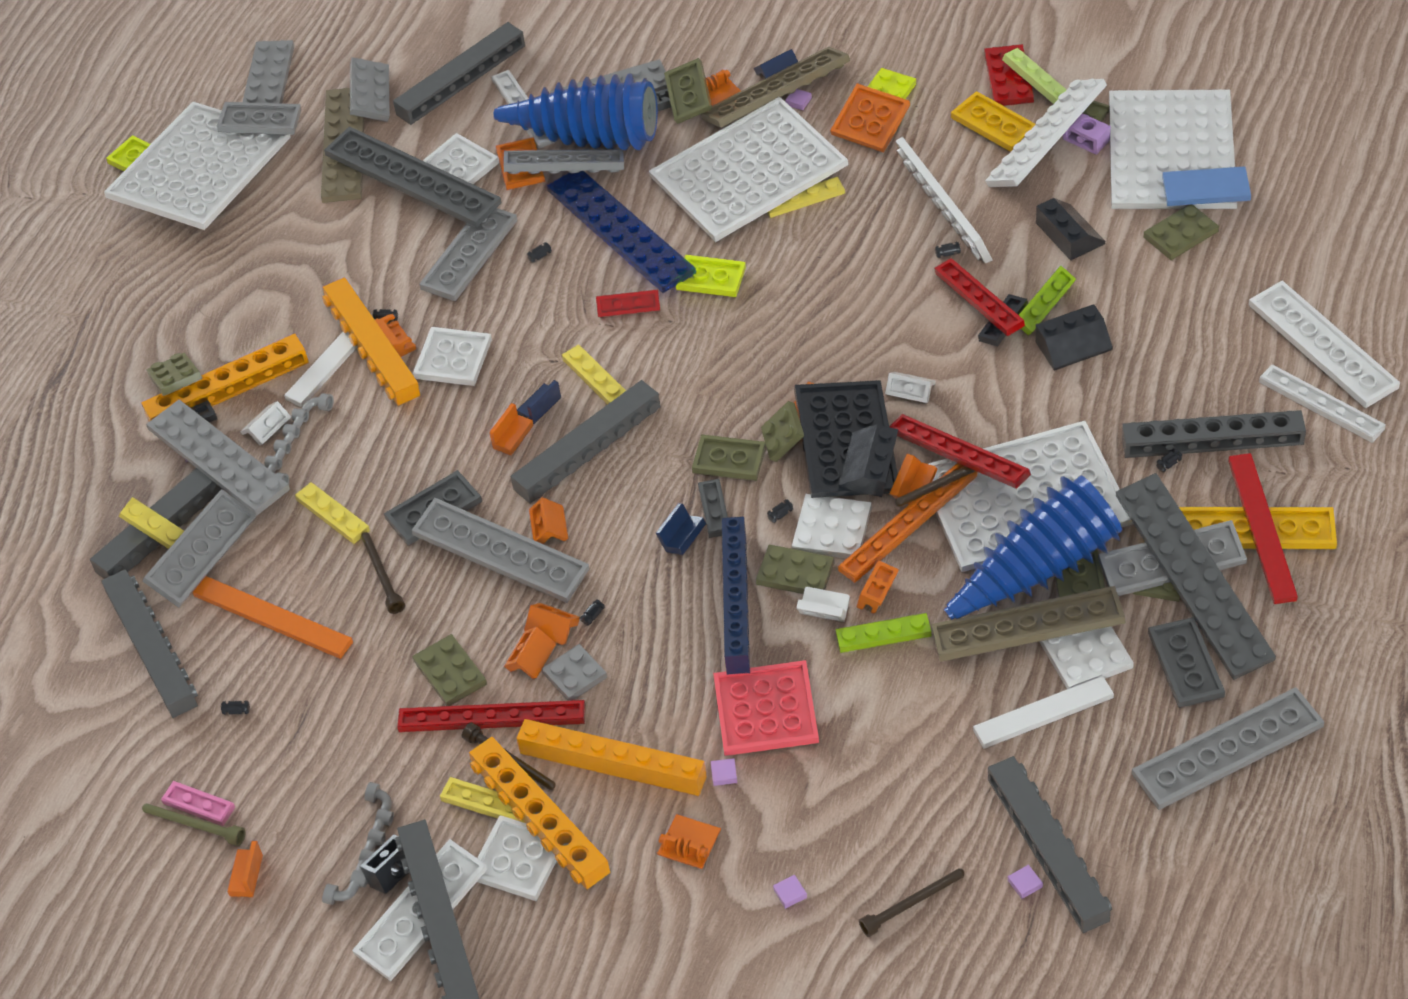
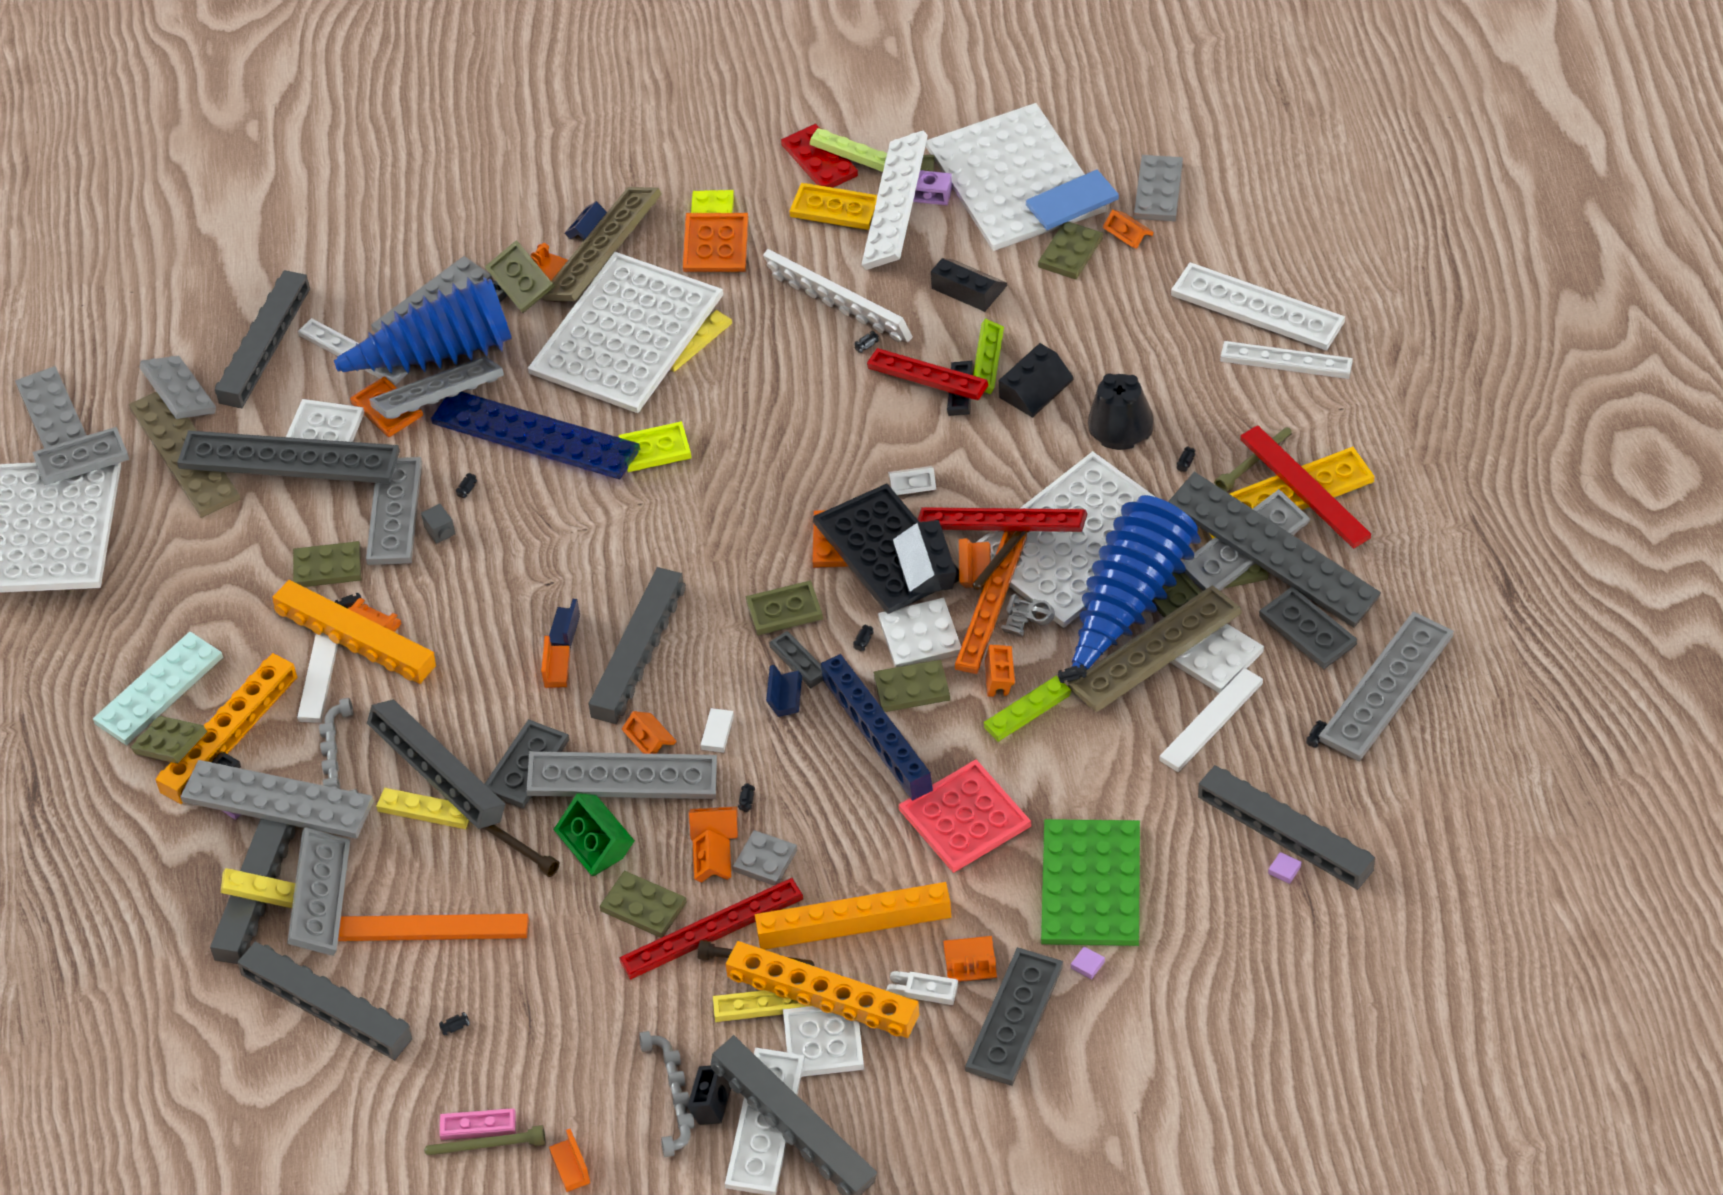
camera: 30 degrees left, 0 degrees up
(199, 329) = (157, 688): none -> light aqua plate
(267, 423) = (296, 749): white panel -> none
(360, 479) = (436, 764): none -> dark grey brick
(390, 277) = (327, 564): none -> olive plate
(447, 590) = (593, 833): none -> green slope
(452, 356) = (447, 615): white plate -> none
(494, 275) = (438, 523): none -> dark grey brick
(593, 374) = (601, 582): light yellow plate -> none
(606, 543) = (717, 730): none -> white tile
(628, 303) = (591, 501): red plate -> none
(633, 850) = (924, 987): none -> white hinge
(692, 912) = (1014, 1016): none -> dark grey plate
(723, 772) = (962, 887): lavender tile -> none
(782, 431) = (823, 564): olive plate -> none
(798, 99) = (630, 248): lavender tile -> none
(824, 604) = (959, 704): white panel -> none
(840, 818) = (1091, 882): none -> bright green plate
(872, 923) = (1177, 959): dark brown piece -> none
(934, 543) = (1024, 610): none -> light grey piece
(938, 617) = (1072, 674): none -> black piece
(1127, 770) = (1313, 739): none -> black piece
(1130, 393) = (1120, 412): none -> black cone
(1193, 495) = (1227, 481): none -> olive piece
(1213, 433) = (1211, 421): dark grey brick -> none
(1244, 229) = (1126, 228): none -> orange panel
(1297, 203) = (1158, 188): none -> light grey plate

